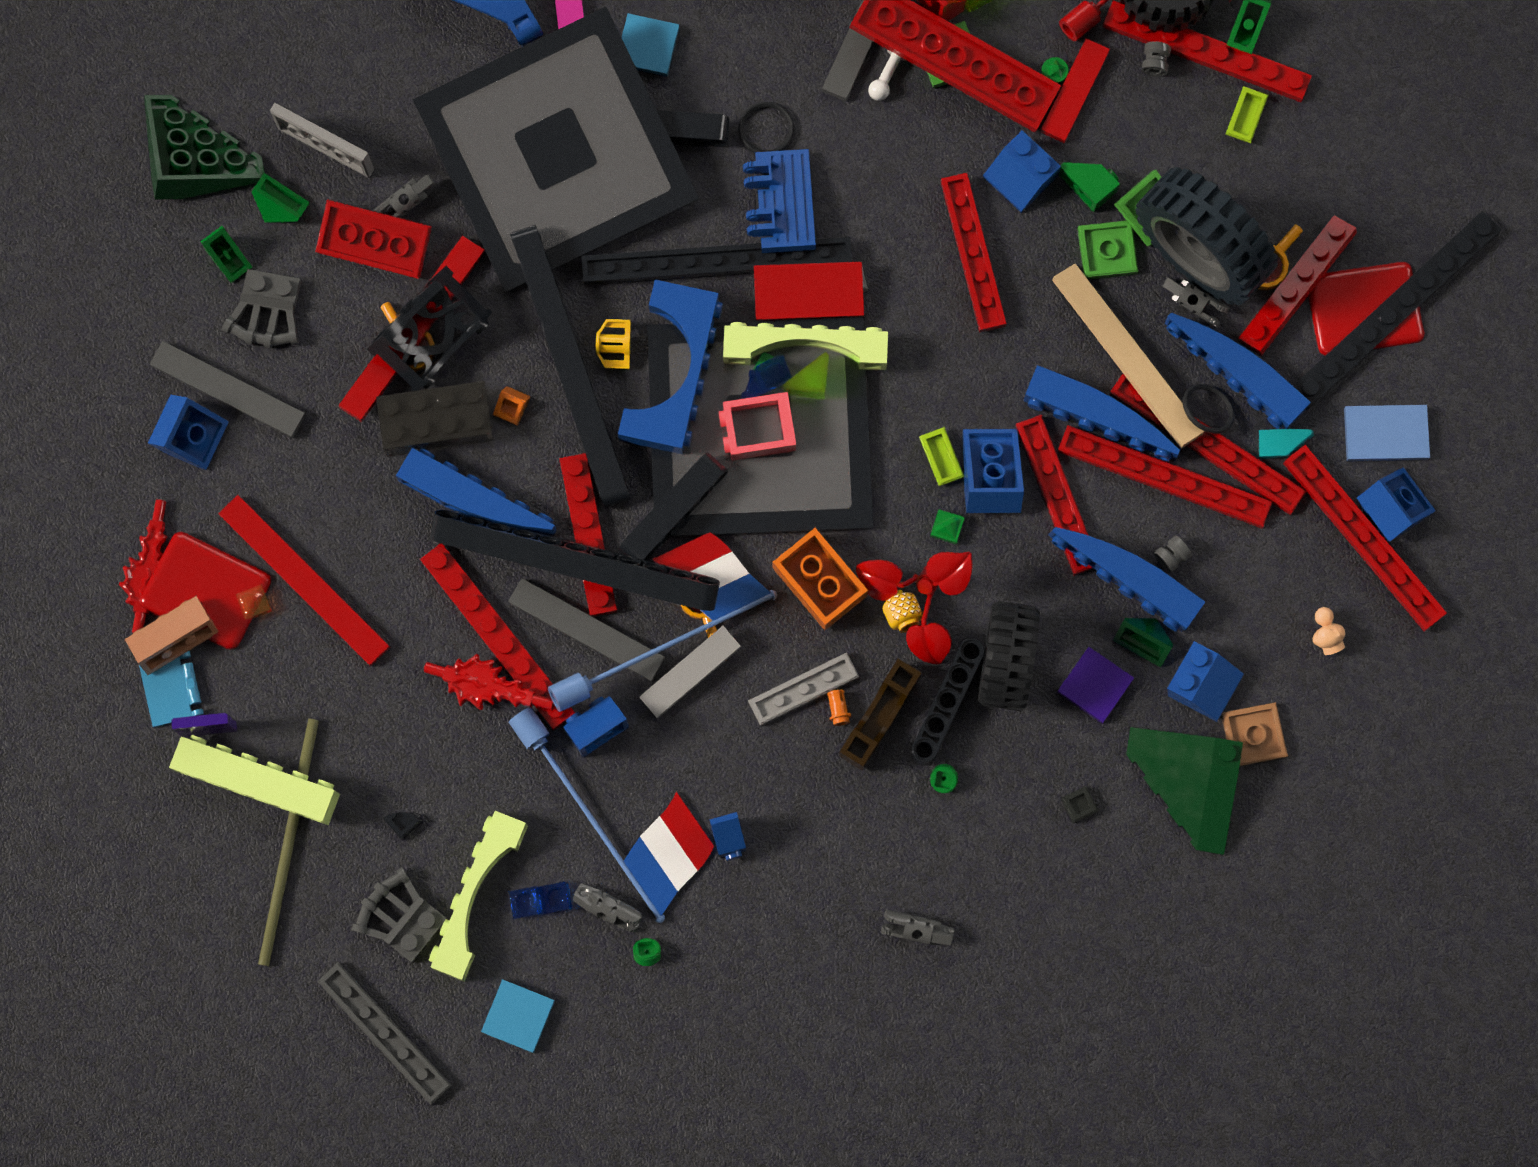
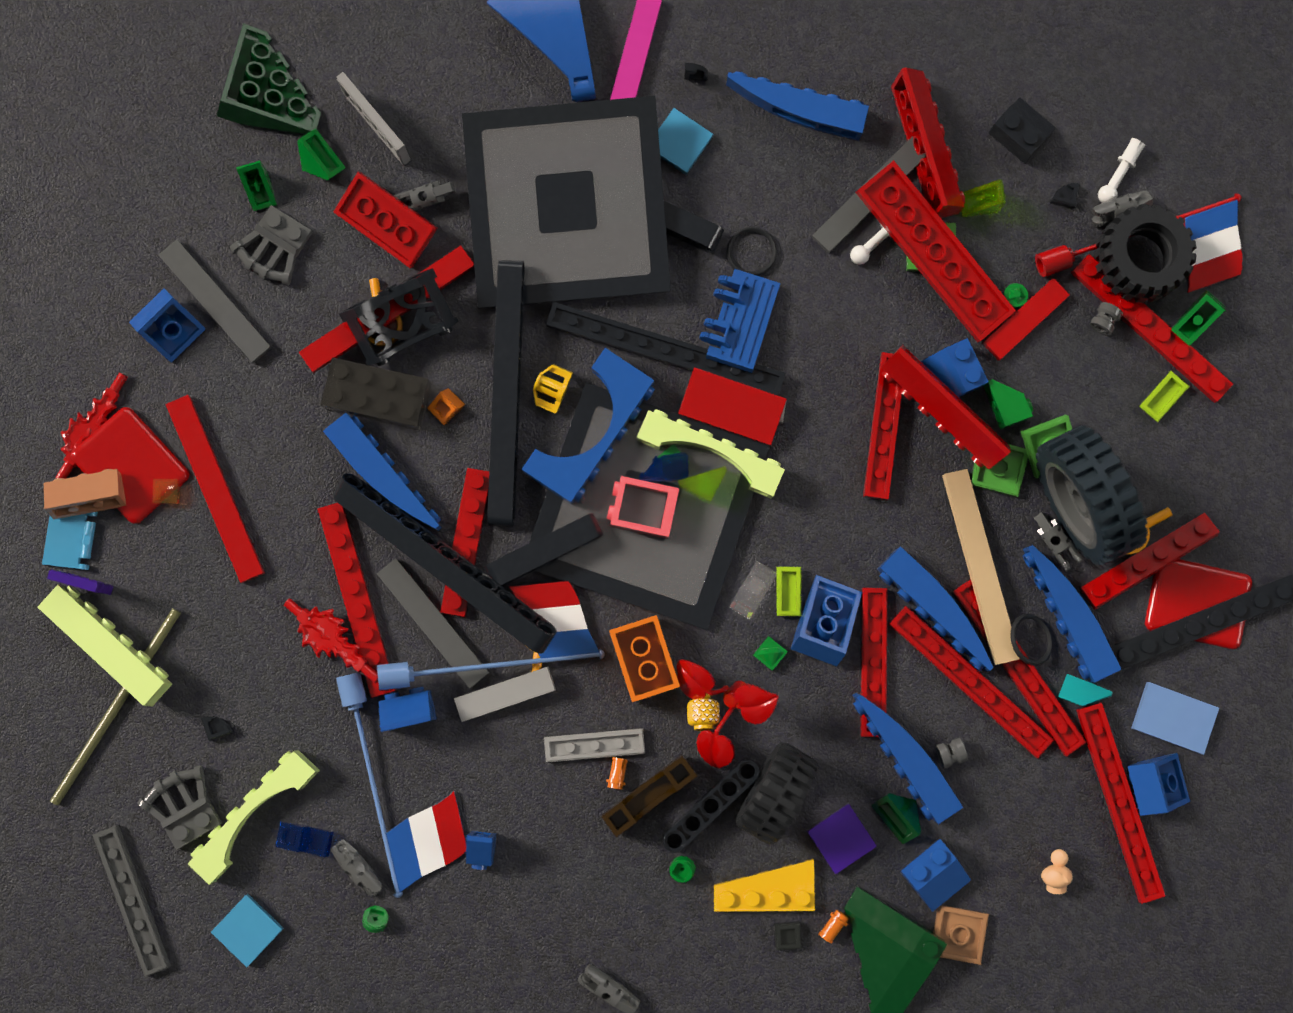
camera: 15 degrees right, 5 degrees up
(904, 468) = (753, 590): none -> clear slope
(1026, 207) = (946, 408): none -> red slope
(1048, 763) = (773, 890): none -> yellow wing
(1122, 775) = (833, 926): none -> orange pin

